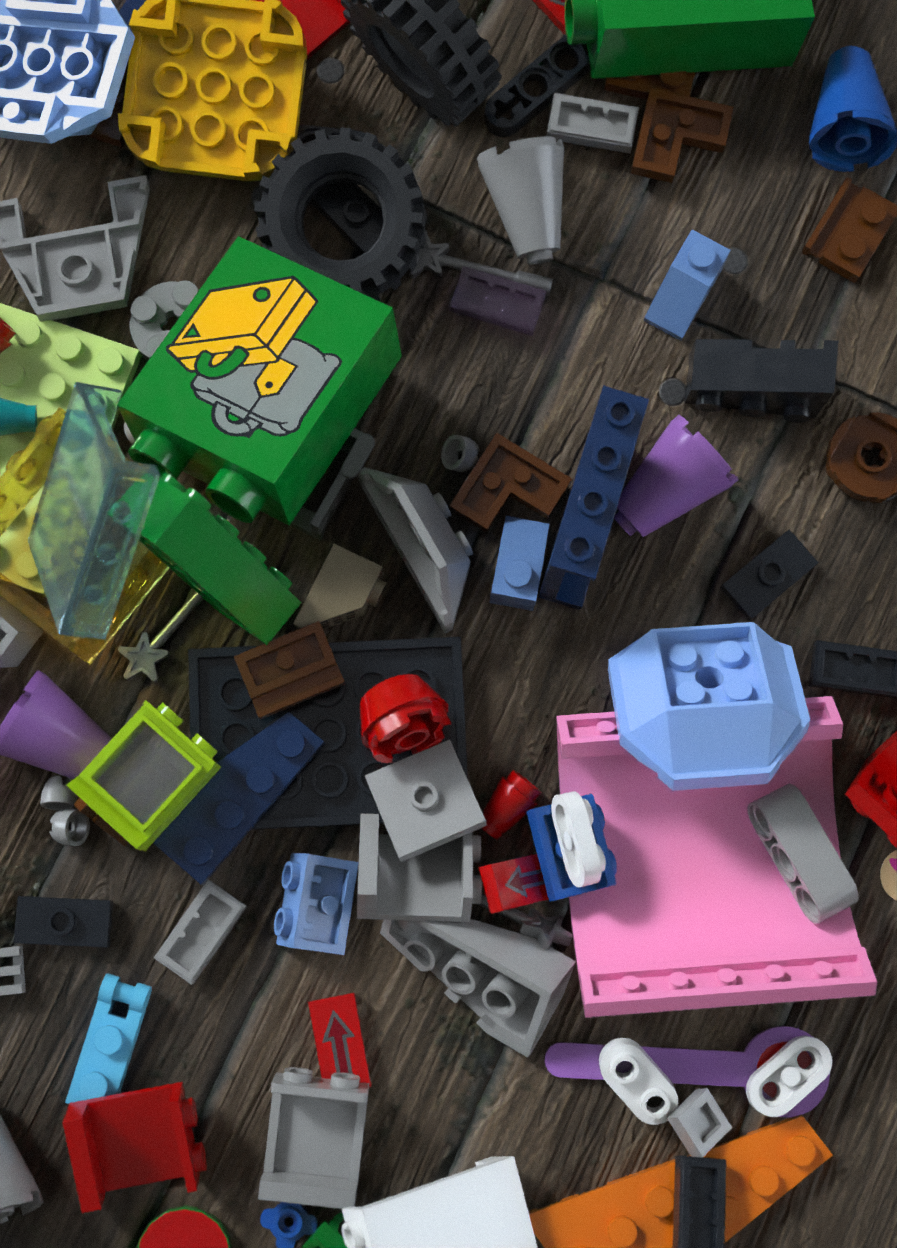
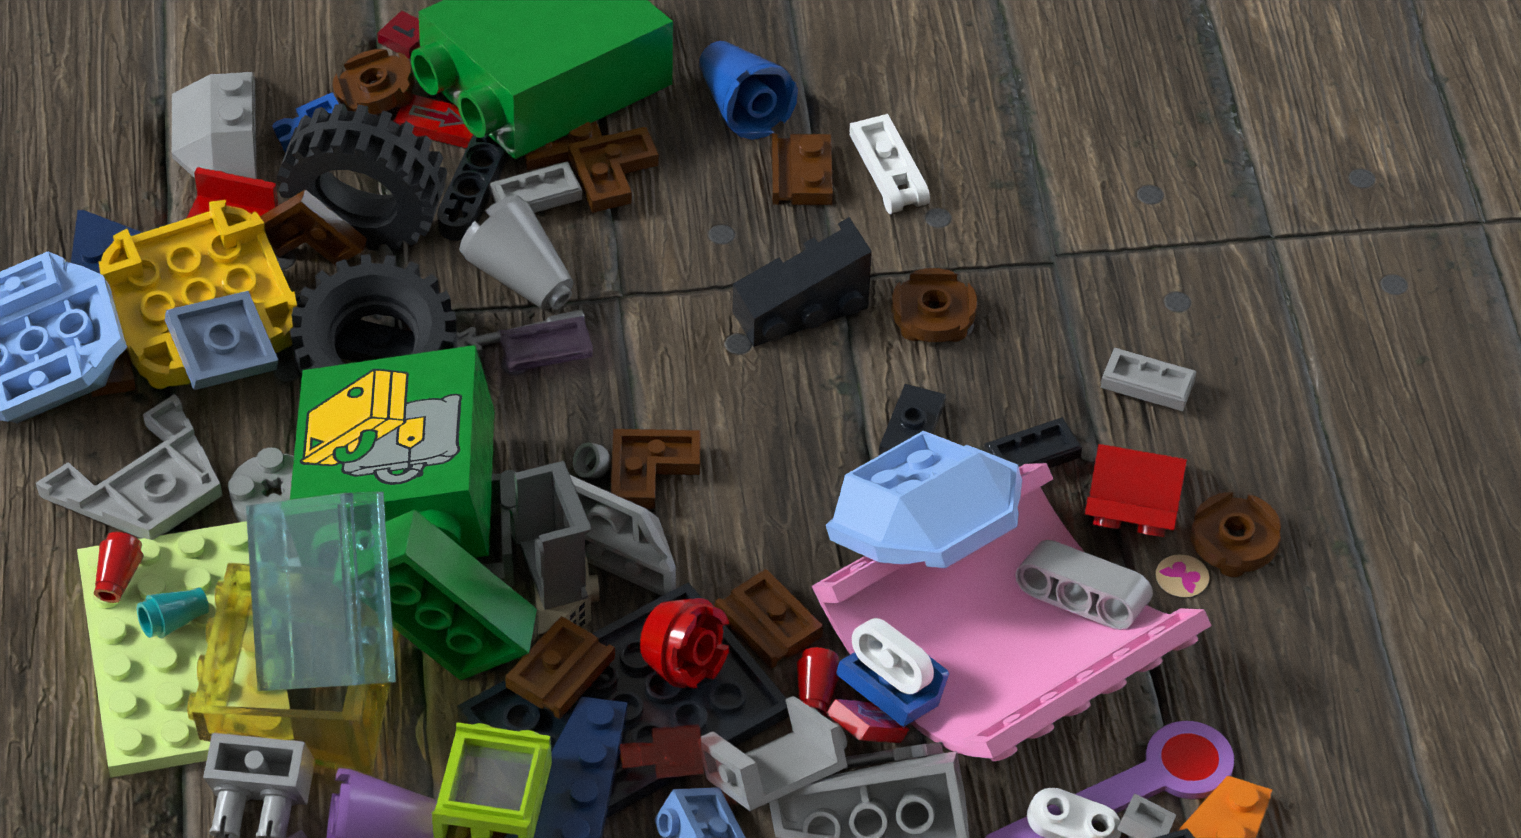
camera: 30 degrees left, 30 degrees down
(148, 652) = (420, 738): flat silver piece -> none
(198, 152) = (221, 340): none -> sand blue plate
(327, 815) = (673, 751): none -> clear red plate
(345, 551) = (537, 525): none -> dark grey piece
(353, 51) = (310, 221): none -> reddish brown plate
(425, 800) = (745, 699): light grey plate -> none
(509, 711) = (769, 618): none -> reddish brown plate
(519, 563) = (702, 516): medium blue slope -> none
(593, 497) = (729, 408): dark blue panel -> none
(672, 480) = (786, 384): medium lavender cone -> none
(686, 284) = (696, 259): medium blue slope -> none
(791, 1080) = (1191, 751): white plate -> none

